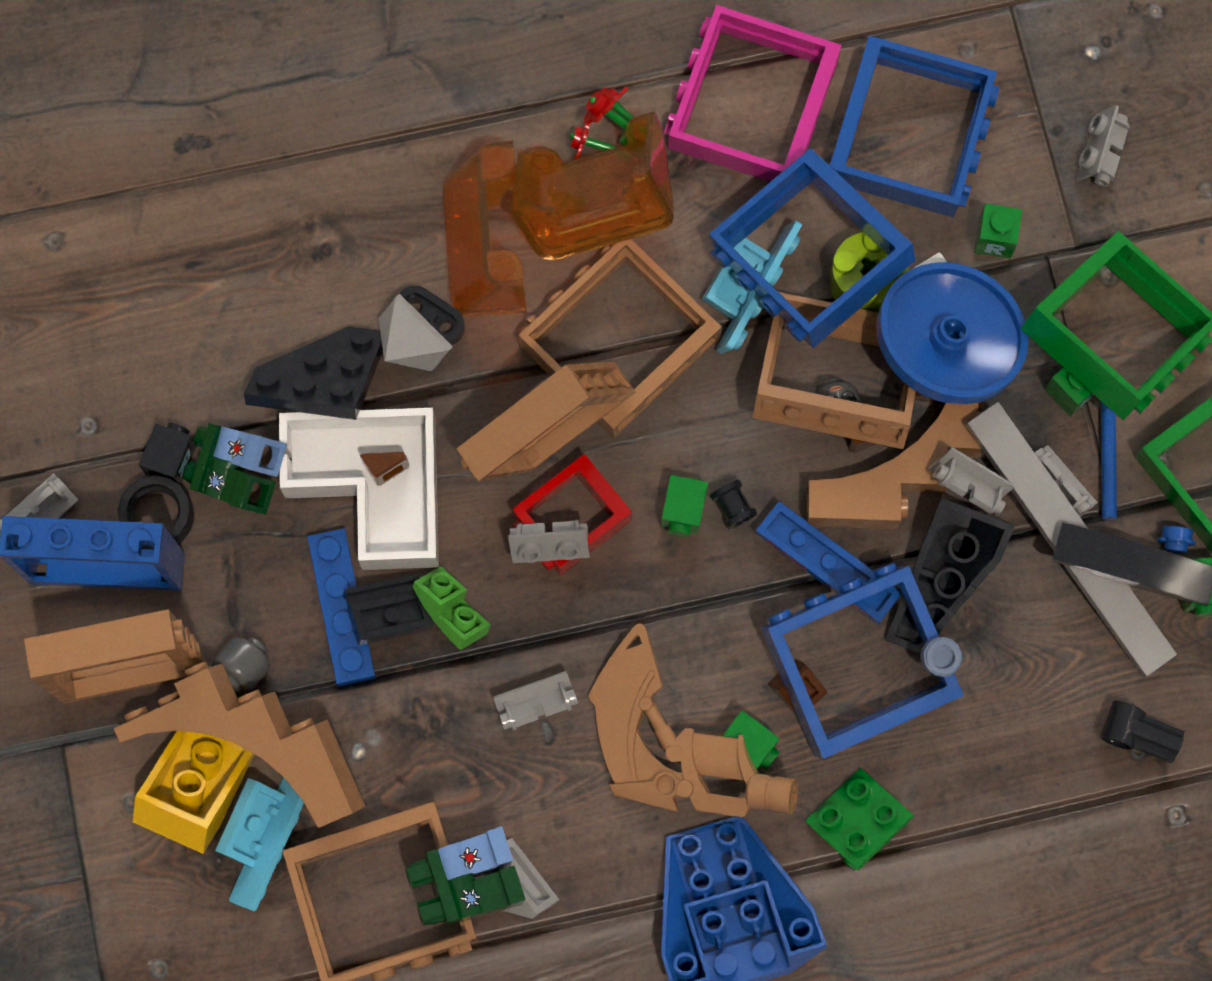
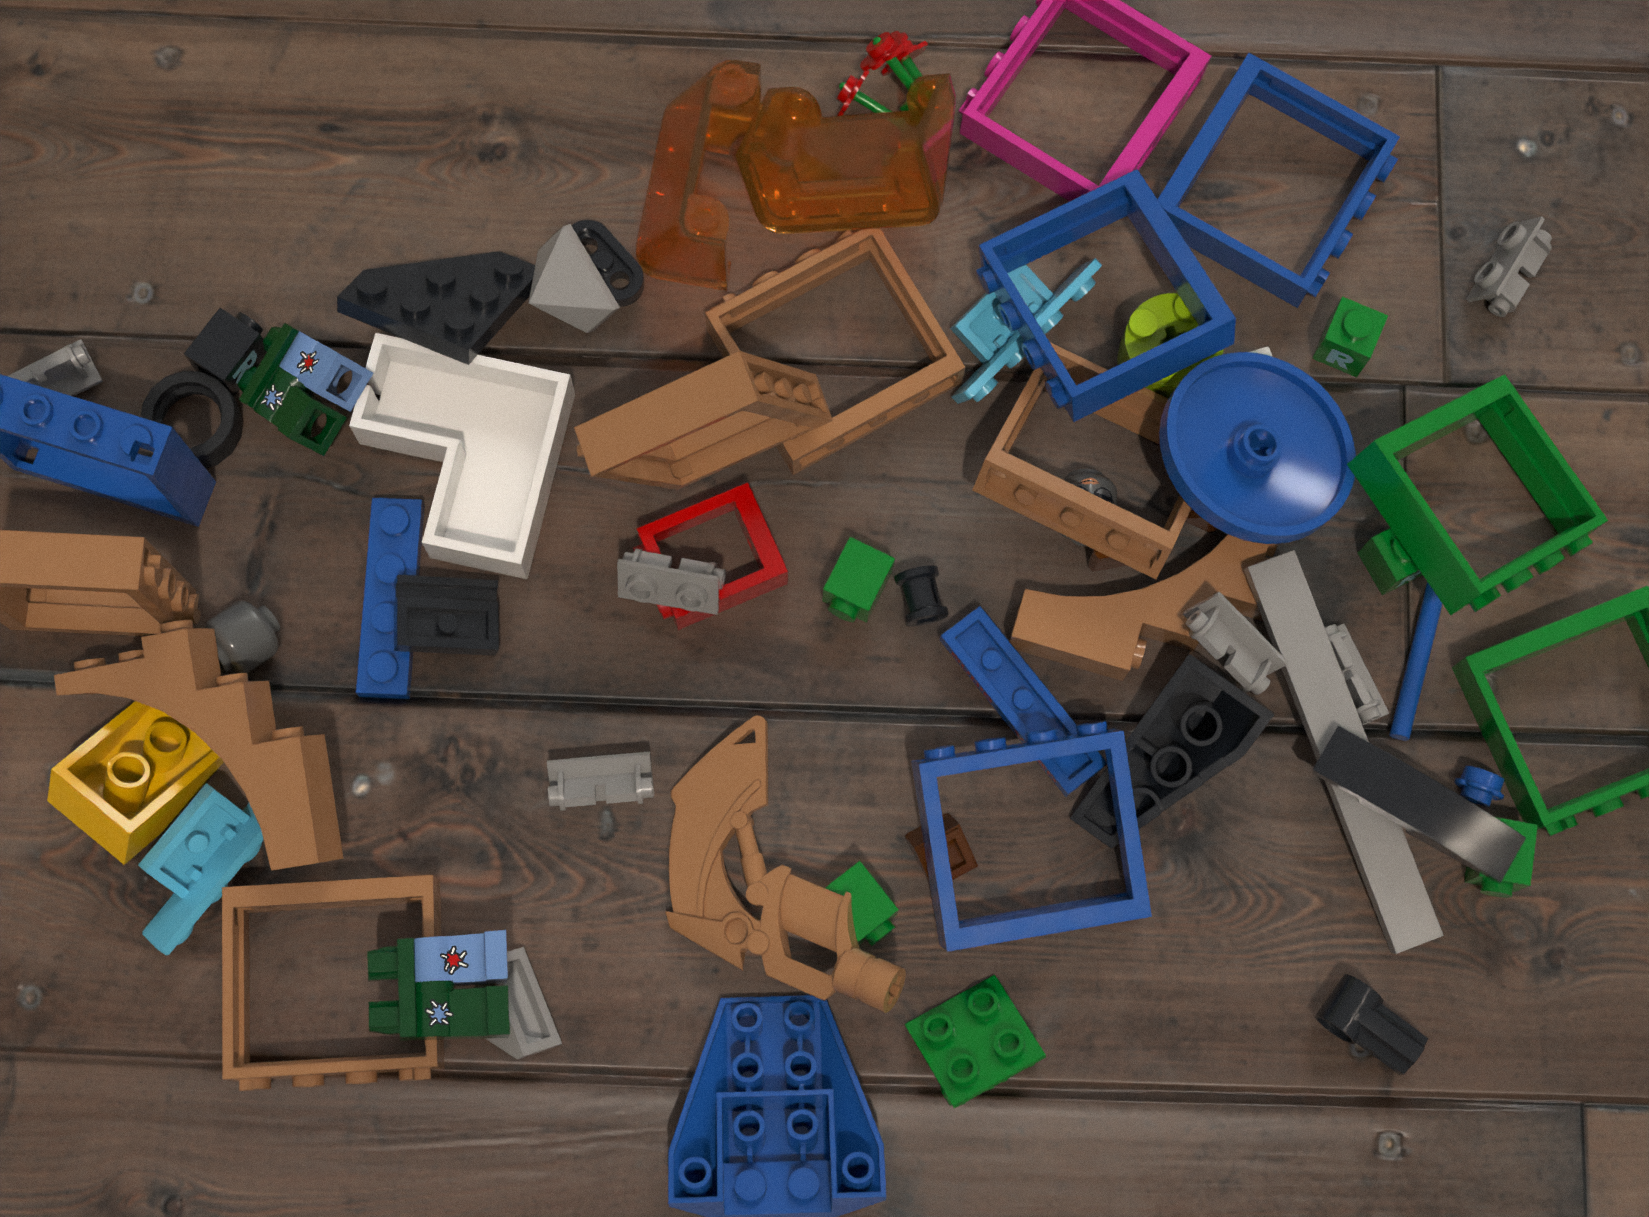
camera: 10 degrees right, 0 degrees up
(384, 465) = (492, 433): reddish brown slope -> none
(445, 604) = (522, 632): bright green slope -> none
(941, 656) = (1135, 859): sand blue tile -> none

